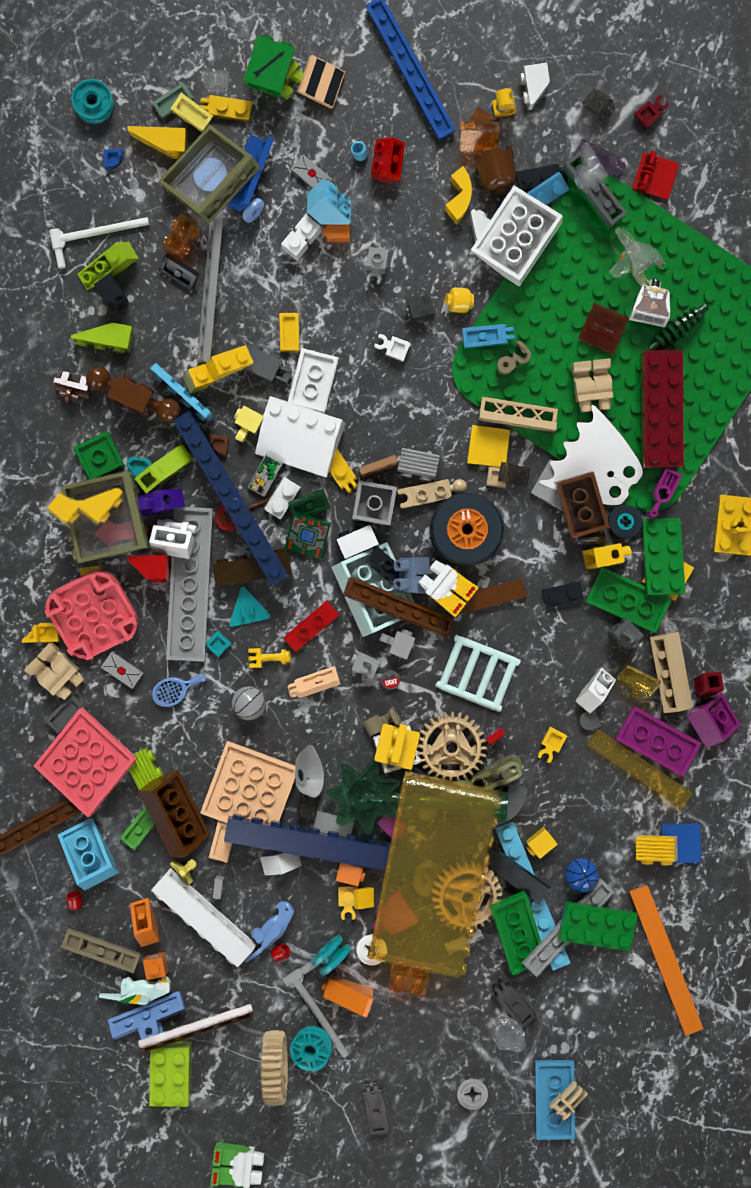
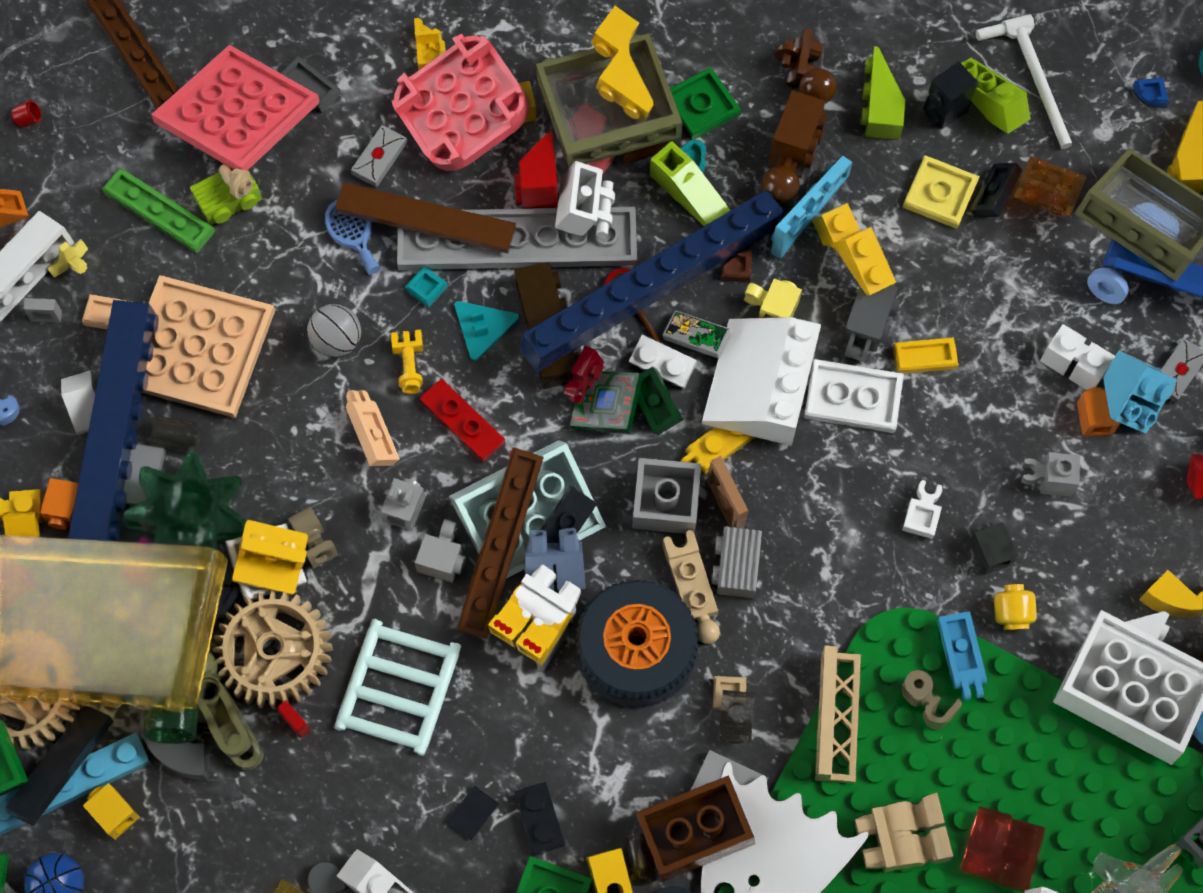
camera: 80 degrees right, 20 degrees down
(57, 675) = (367, 68): tan hips -> none
(87, 854) = (94, 125): medium azure slope -> none
(143, 760) = (237, 180): none -> tan plate
(154, 505) = (638, 170): dark purple torso -> none
(173, 642) = (425, 218): none -> reddish brown tile
(174, 814) = (157, 235): reddish brown slope -> none
(175, 307) = (940, 192): none -> light yellow tile
(210, 288) = (1000, 234): light grey tile -> none
(289, 546) = (585, 372): none -> dark red plate
(312, 768) = (235, 436): light grey piece -> none
(357, 541) = (604, 476): white brick -> none
(390, 679) = (381, 547): tile -> none
(488, 446) = (779, 675): yellow tile -> none
(494, 595) = (528, 699): reddish brown tile -> none
(553, 741) = (285, 819): yellow plate -> none
(556, 633) = (472, 812): none -> black piece

